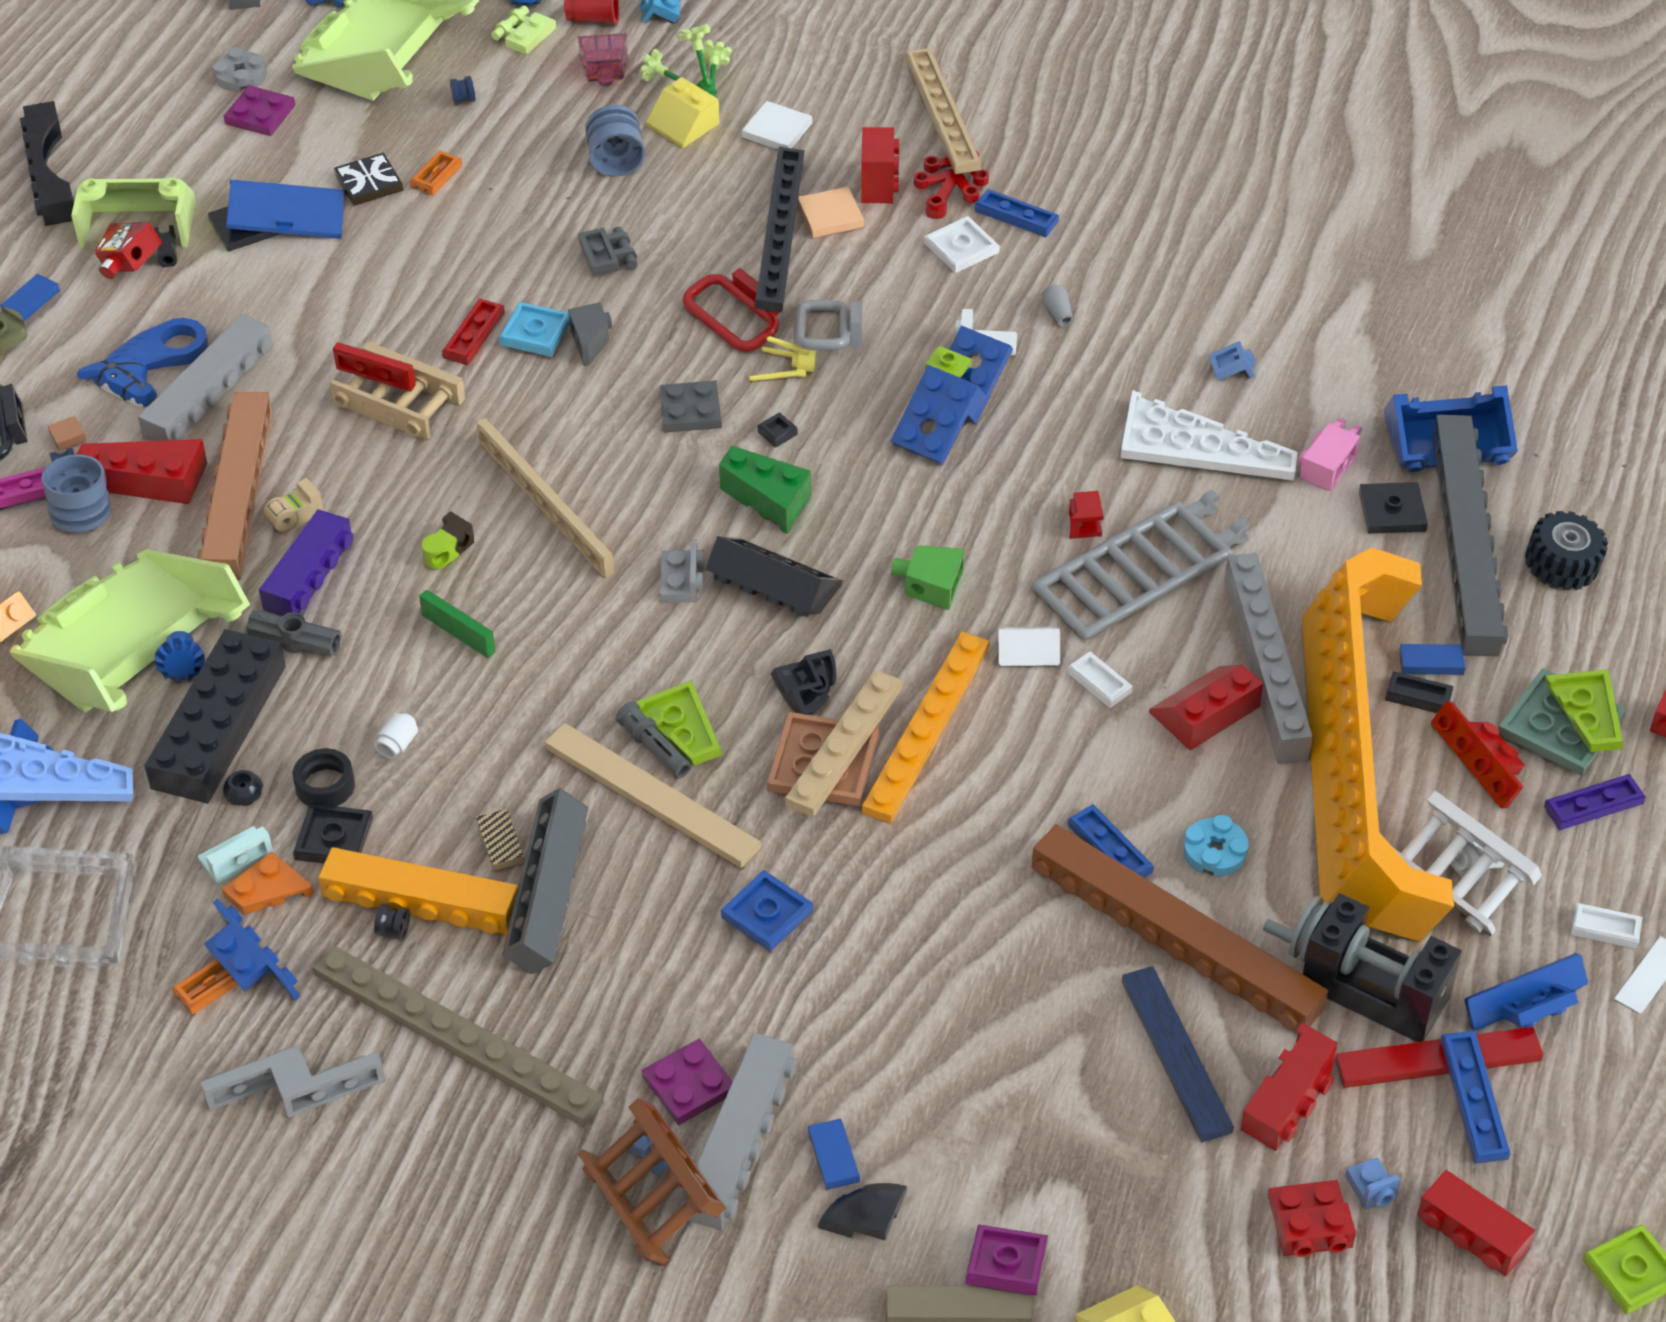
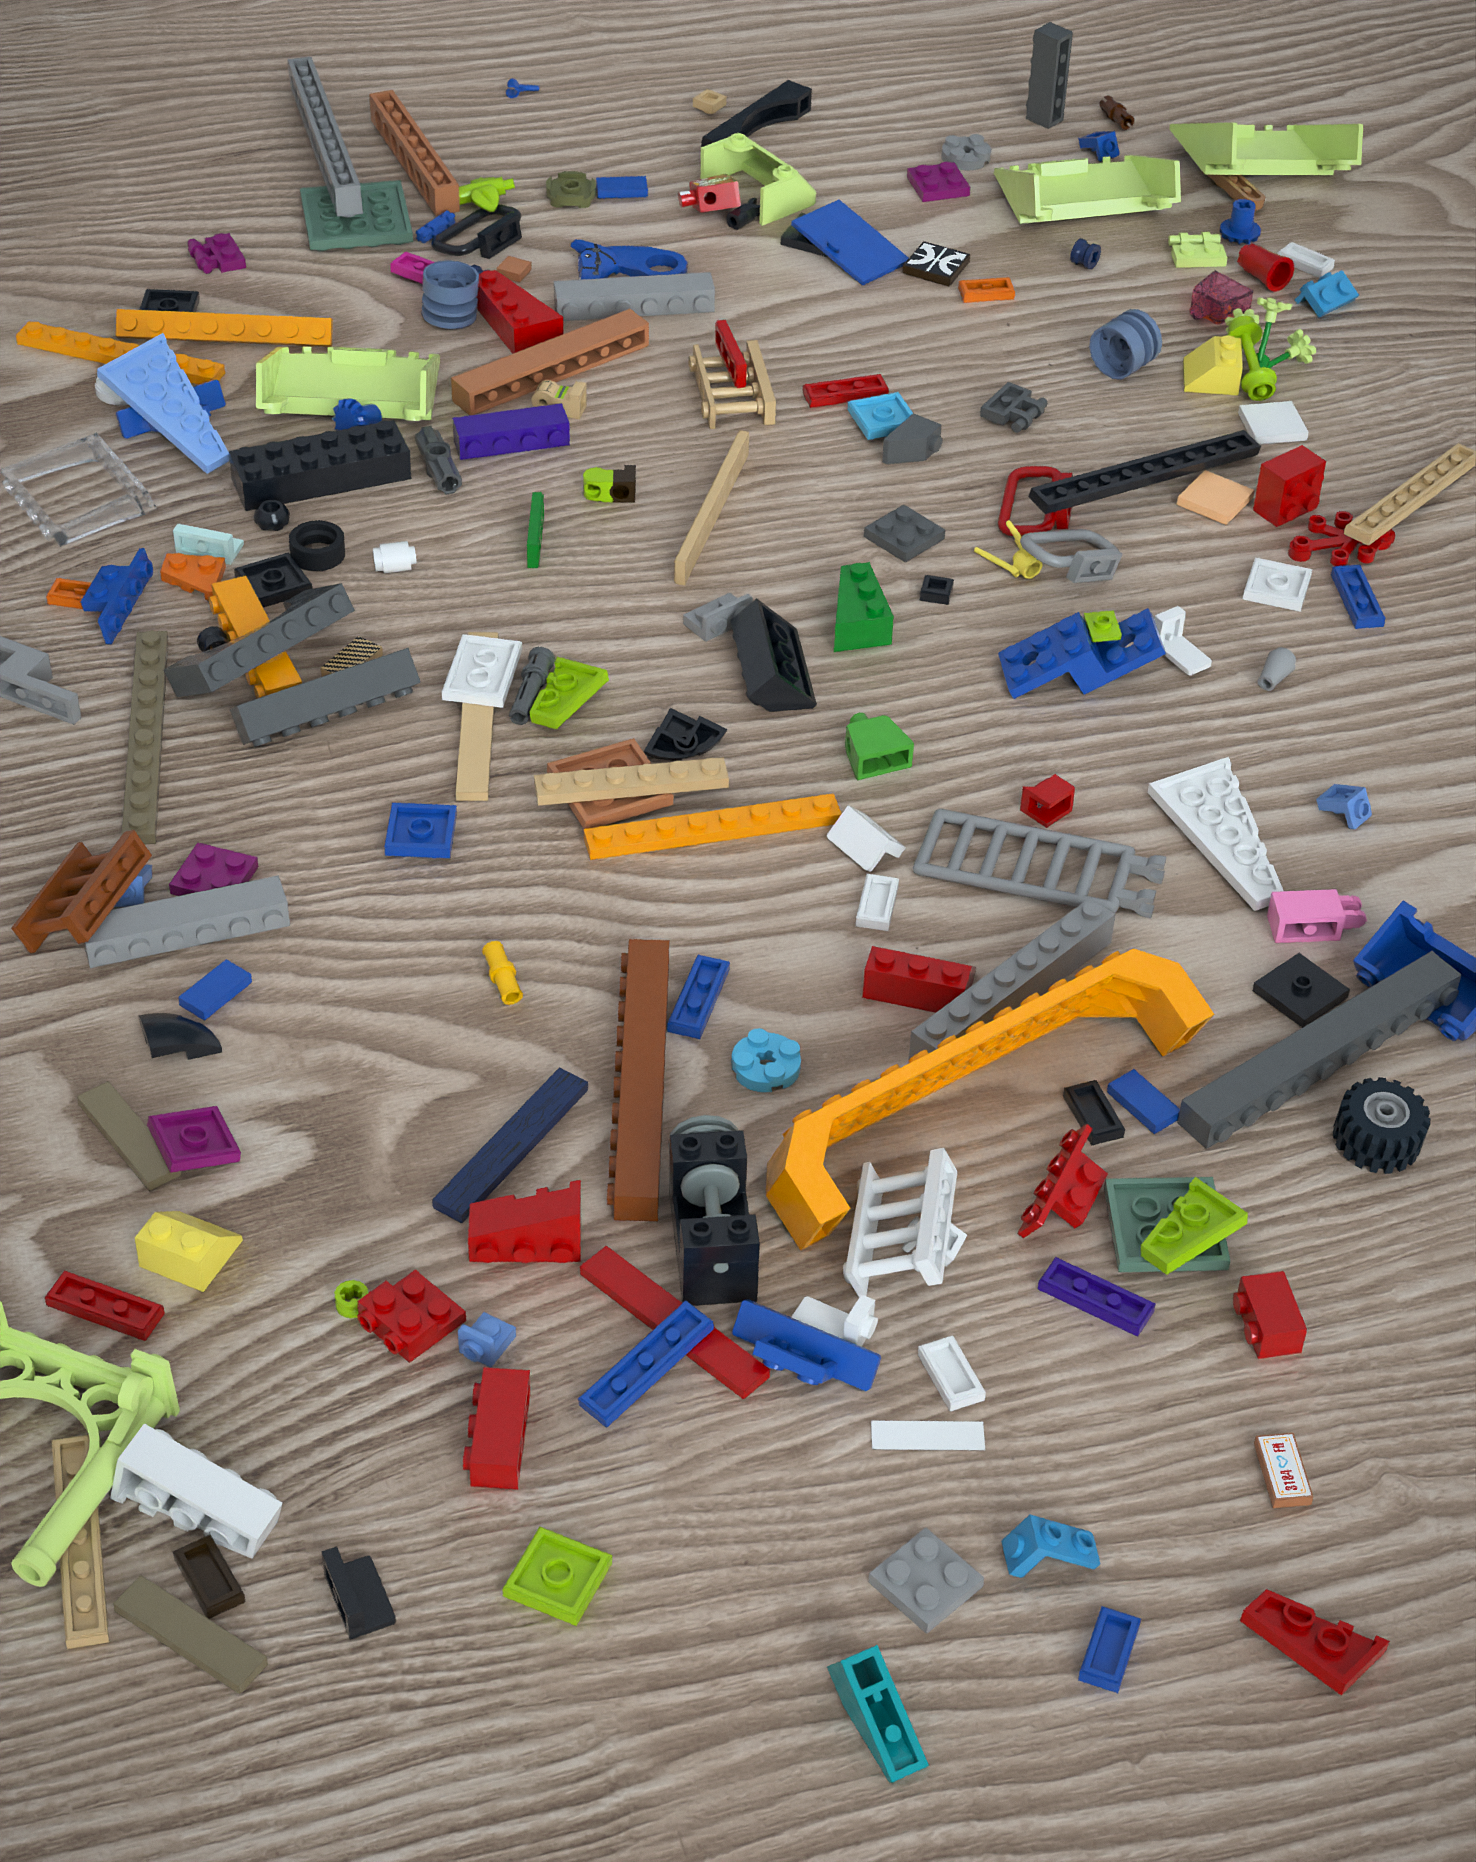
camera: 50 degrees right, 5 degrees down
(453, 927) = (303, 617): none -> dark grey arch
(609, 759) = (482, 671): none -> white tile
(732, 103) = (1258, 382): none -> lime piece
(984, 951) = (502, 972): none -> yellow pin
(1261, 1257) = (348, 1290): none -> lime bush
(1537, 951) = (852, 1327): none -> white bracket

